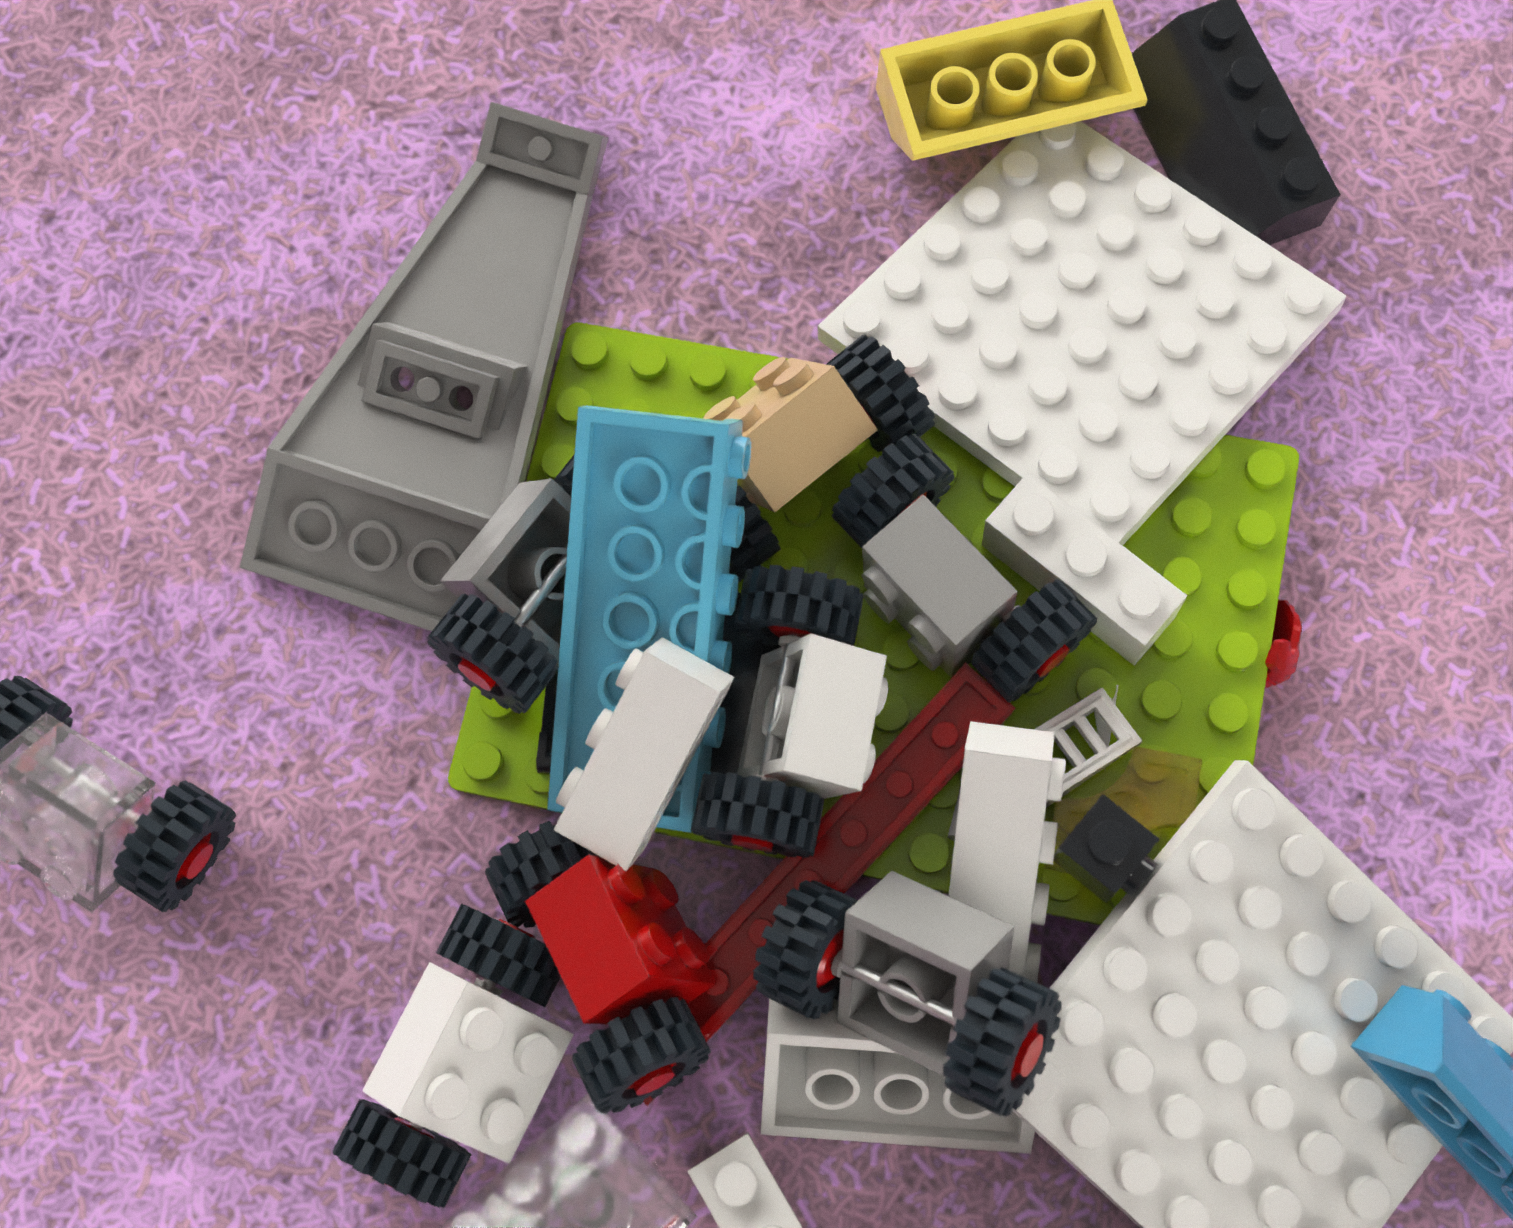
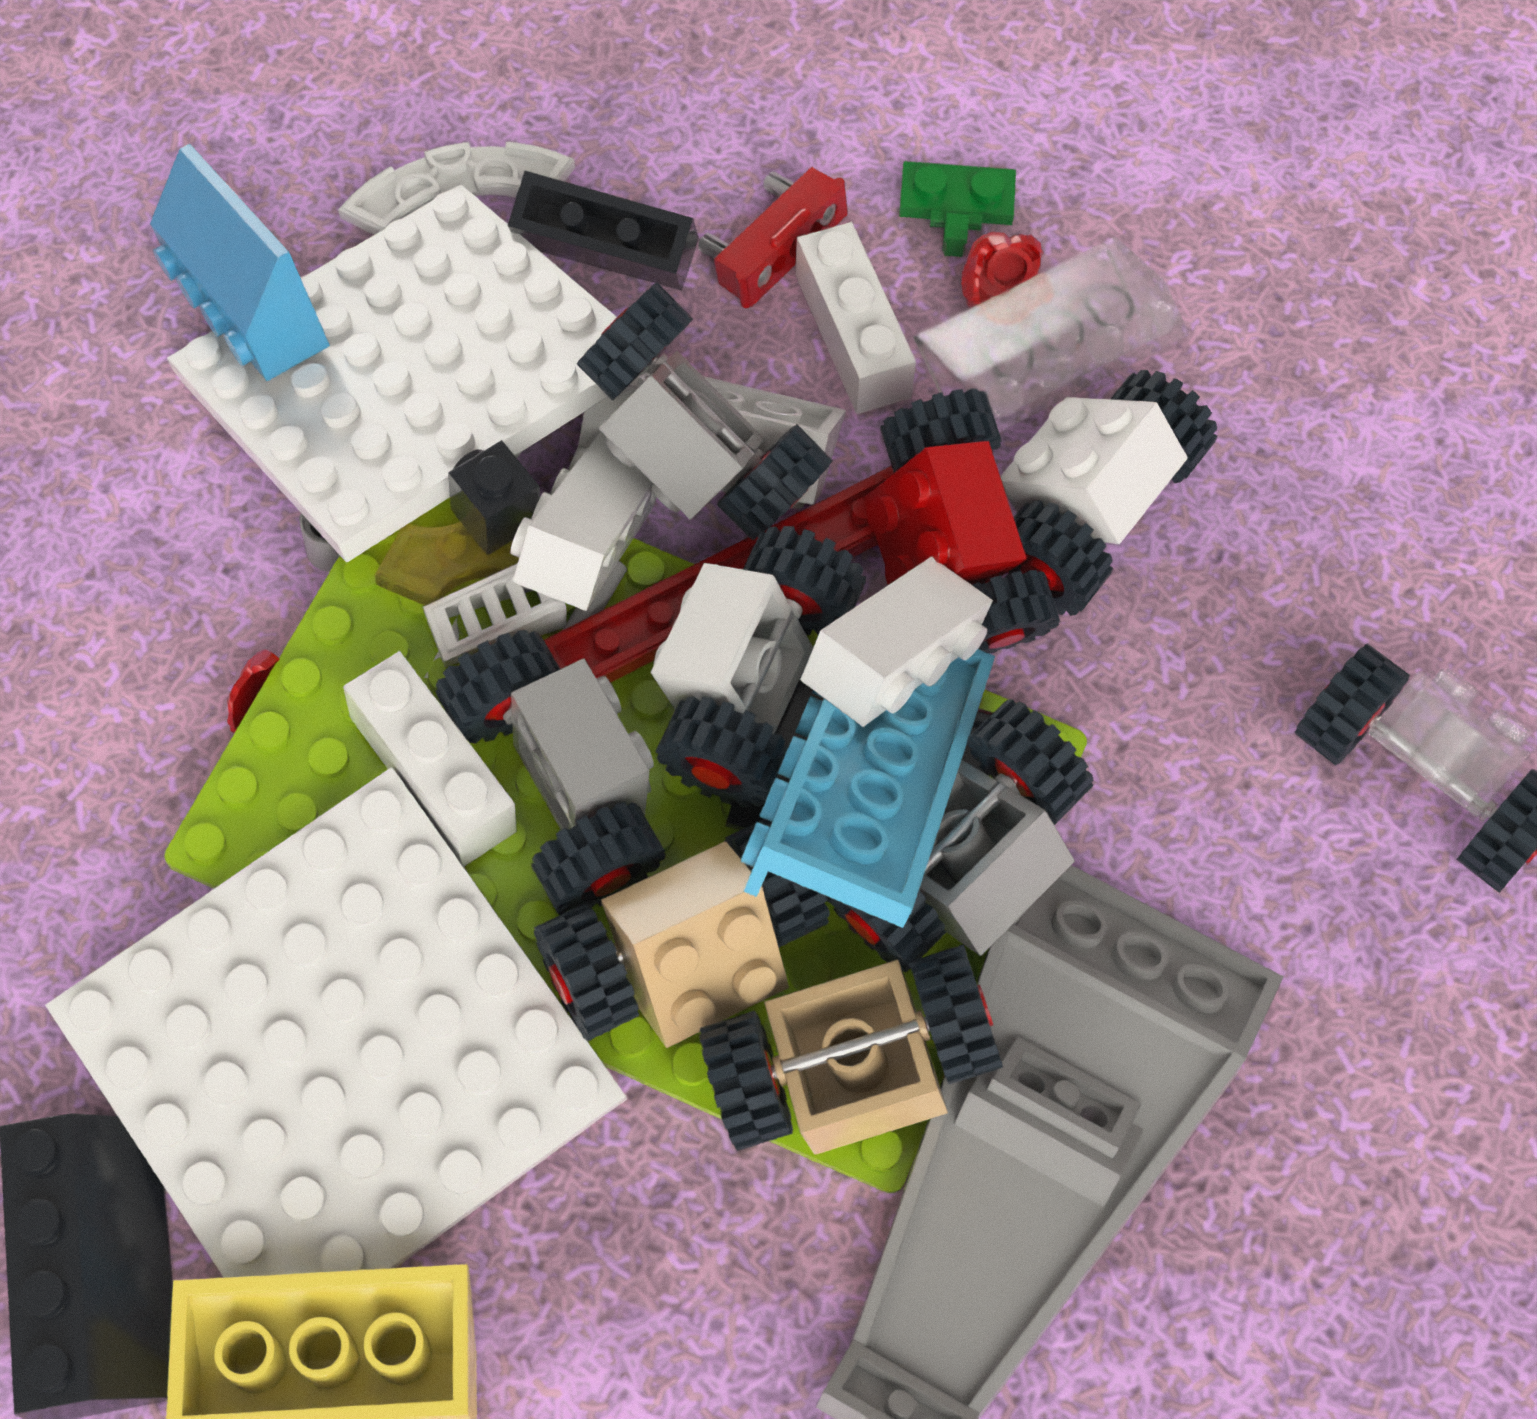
camera: 170 degrees left, 10 degrees down
(626, 360) = (851, 1054): none -> brick

